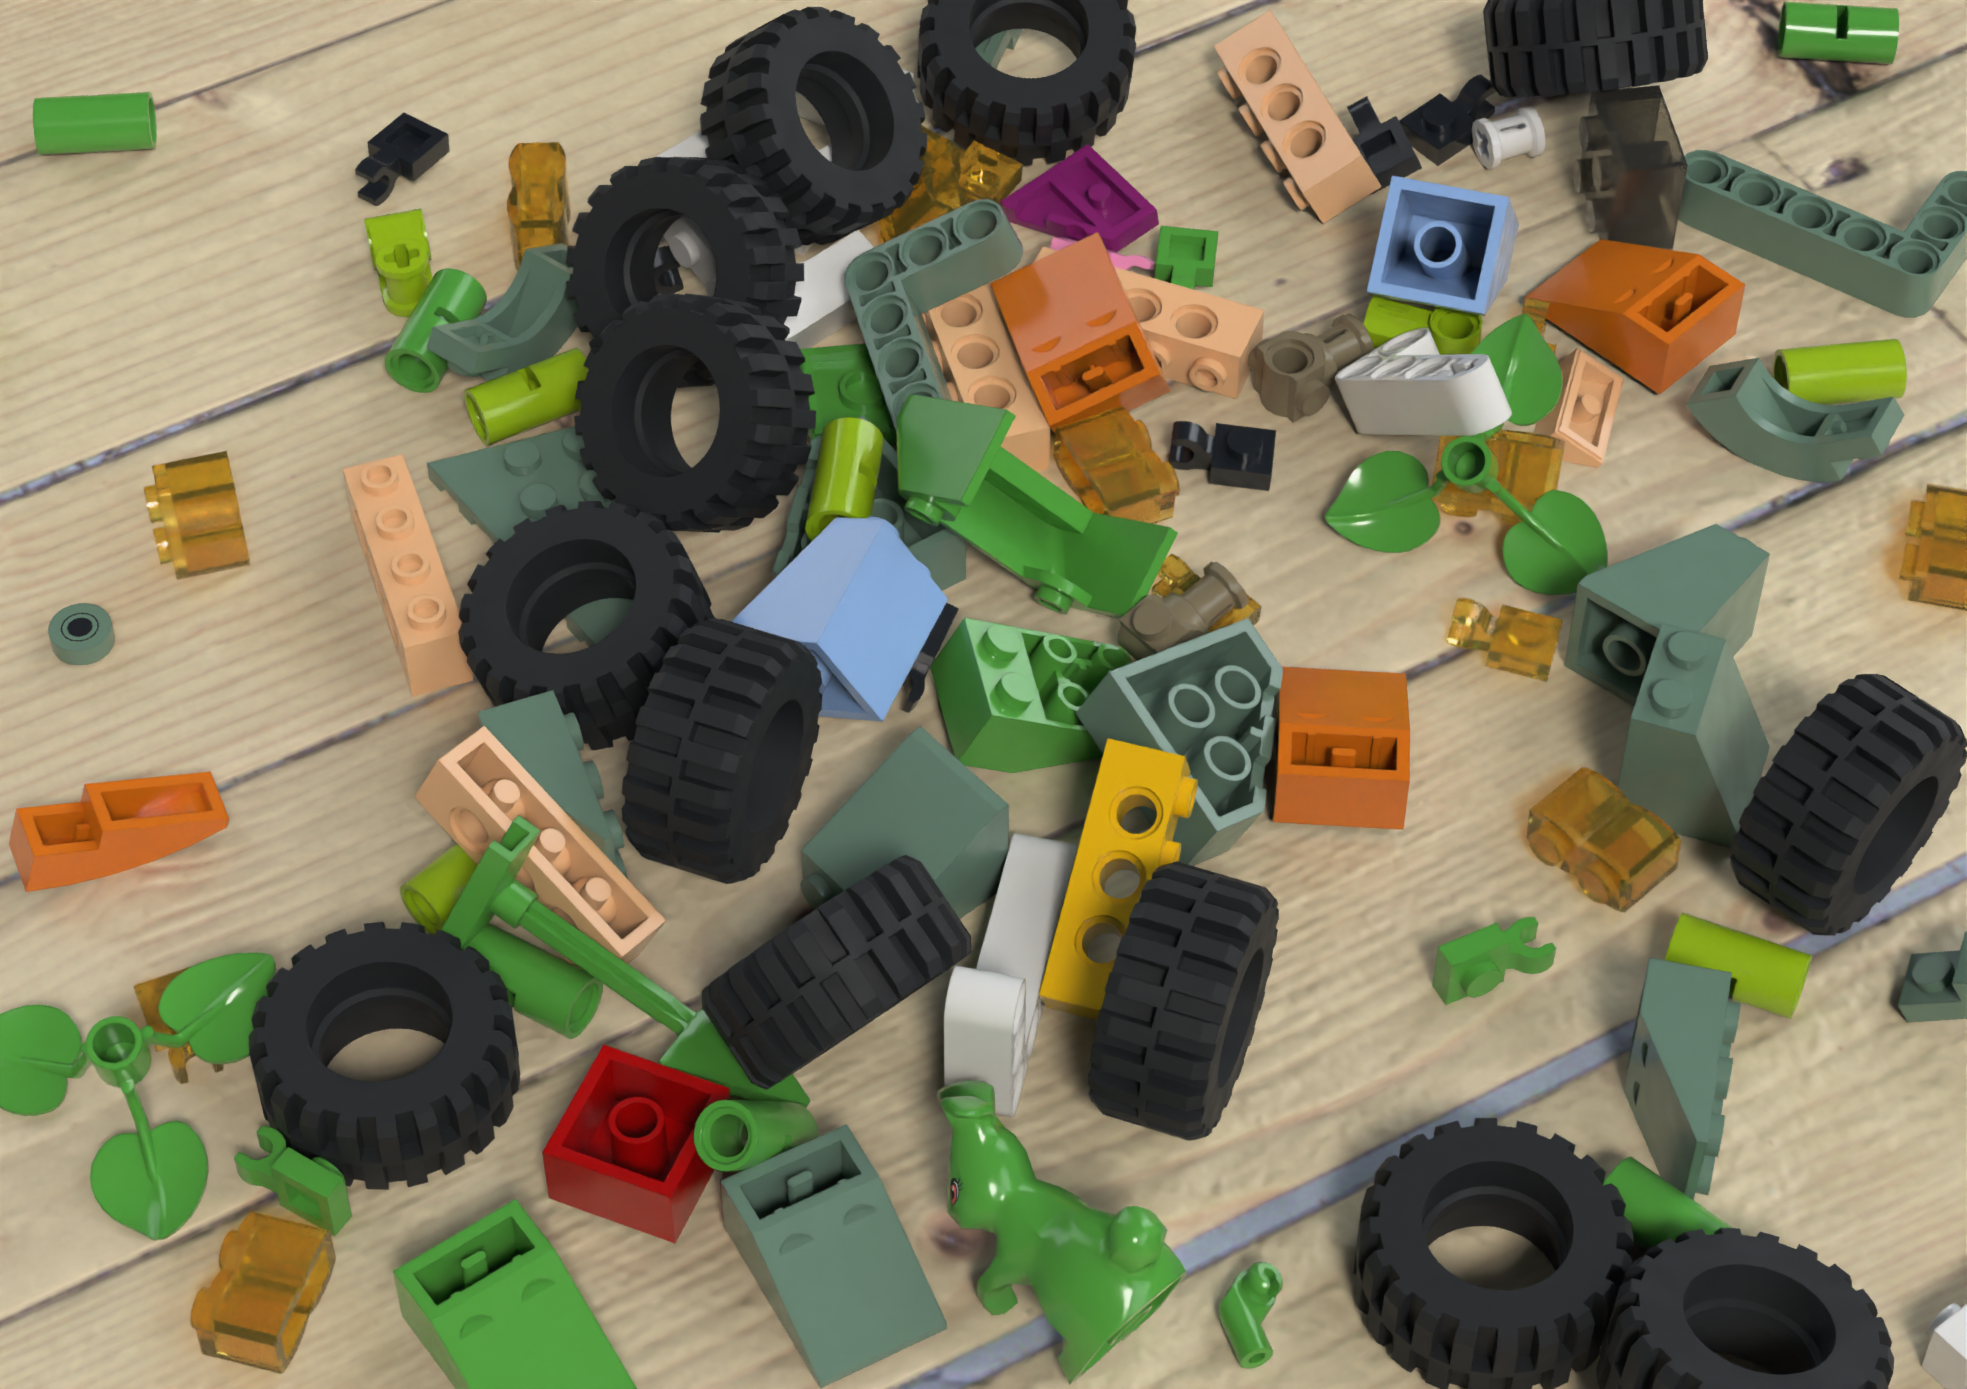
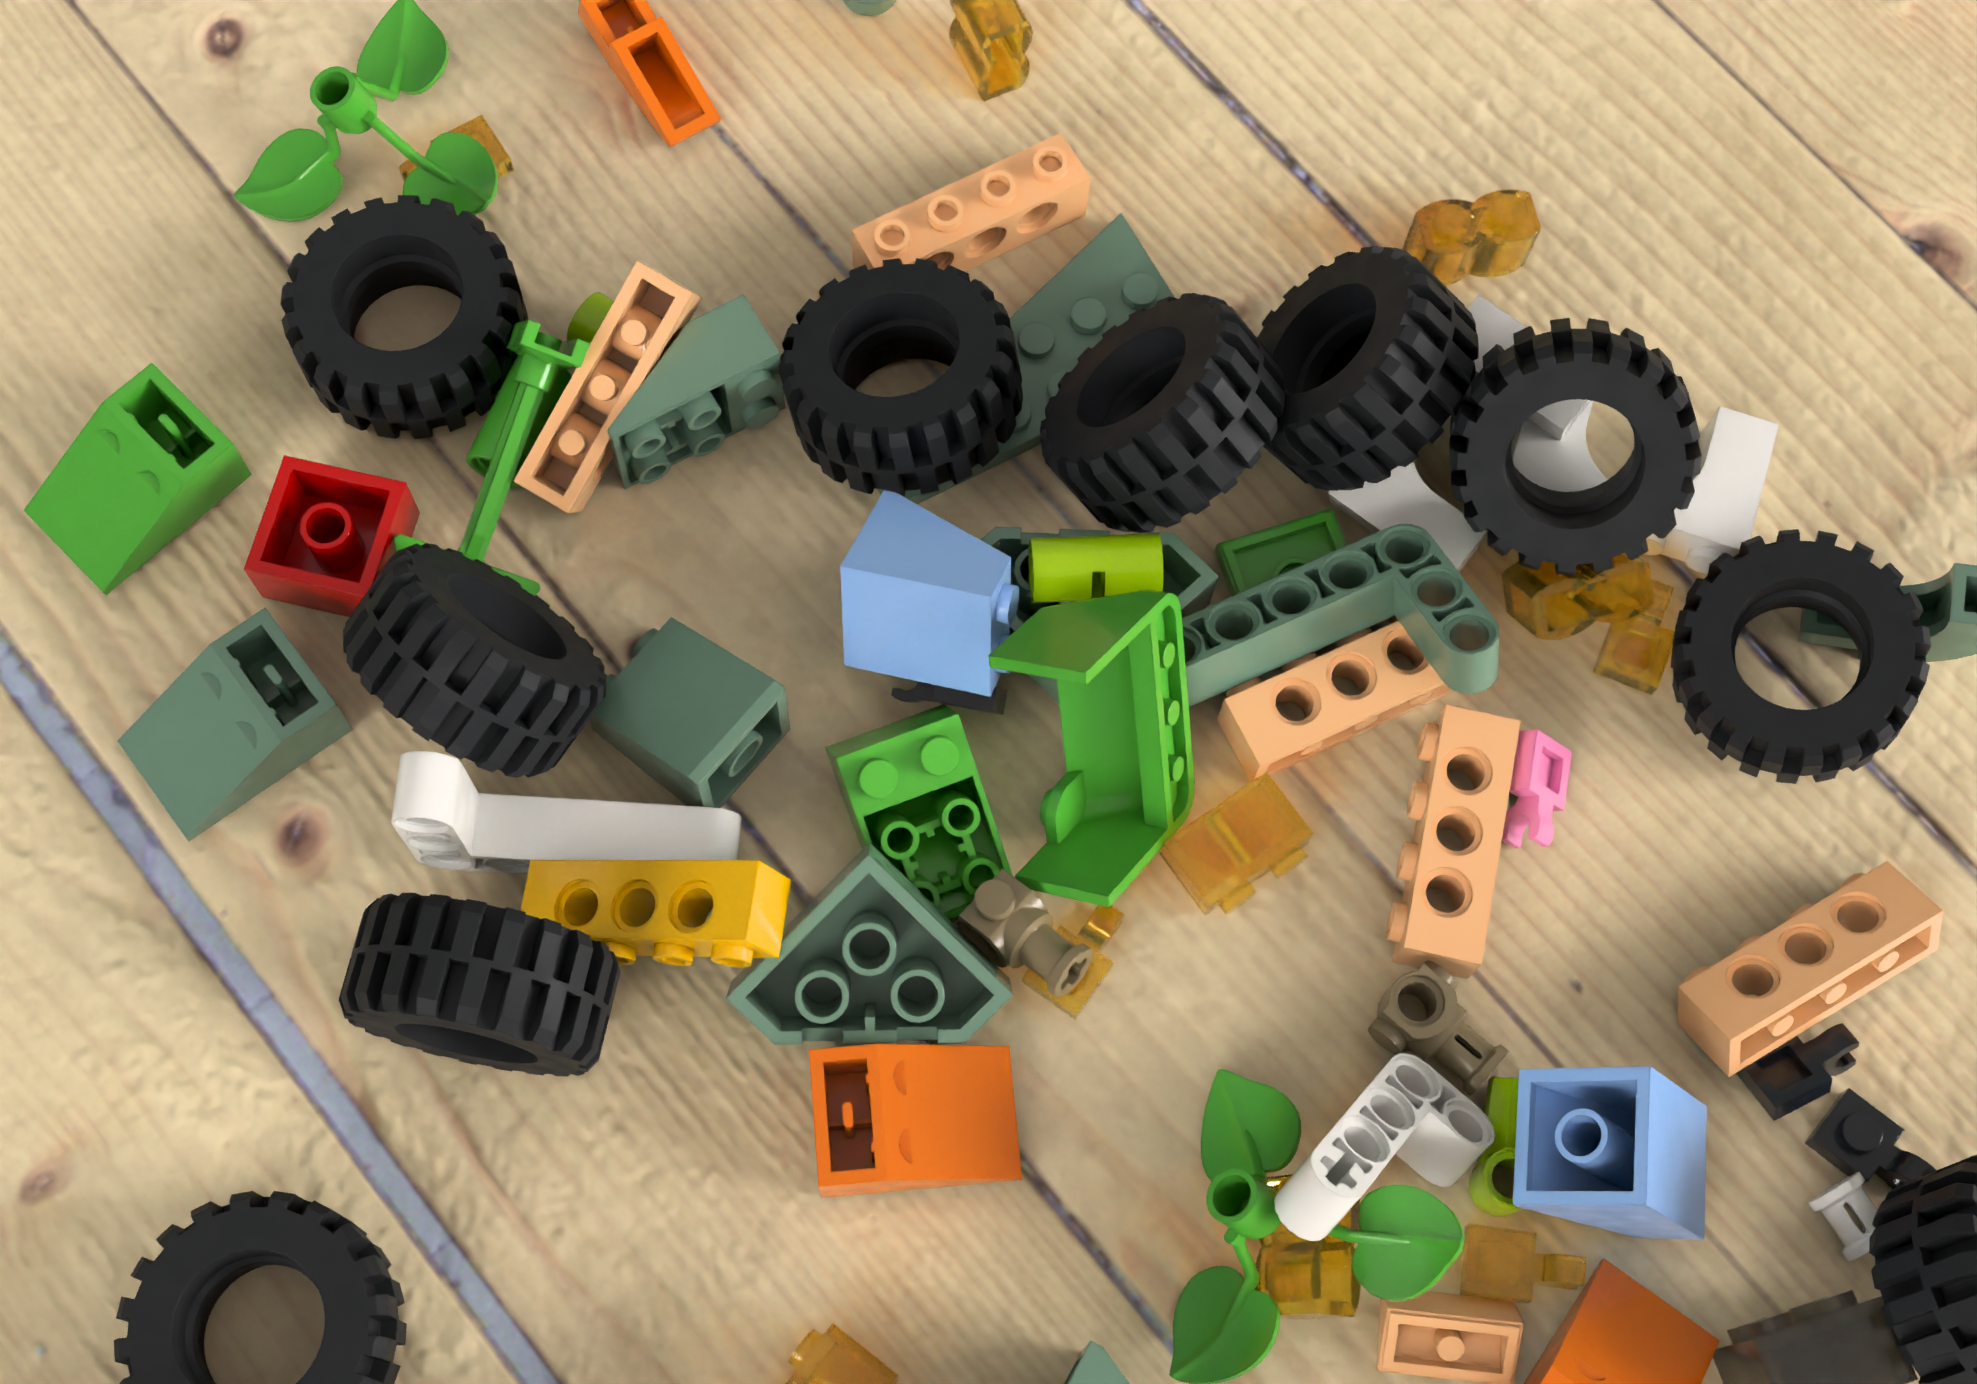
camera: 75 degrees right, 20 degrees up
(264, 1291) = (173, 282): clear yellow brick -> none
(303, 1186) = (265, 295): bright green plate -> none
(401, 258) = (1377, 135): lime piece -> none
(403, 149) = (1526, 106): black plate -> none
(447, 299) = (1289, 183): bright green pin -> none
(521, 328) = (1276, 237): sand green arch -> none
(526, 397) = (1211, 268): lime pin -> none
(721, 750) = (733, 512): black tyre -> none
(748, 1132) = (314, 620): bright green pin -> none
(1078, 334) = (1383, 772): orange slope -> none
(1081, 199) = (1625, 761): magenta wing -> none
(1088, 1267) = (189, 944): bright green animal -> none
(1186, 256) = (1562, 876): bright green plate -> none
(1233, 455) = (1298, 968): black plate -> none
(1245, 1309) = (221, 1103): bright green arm -> none
(1479, 959) = (639, 1288): bright green plate -> none
(1516, 640) = (1094, 1295): clear yellow plate -> none

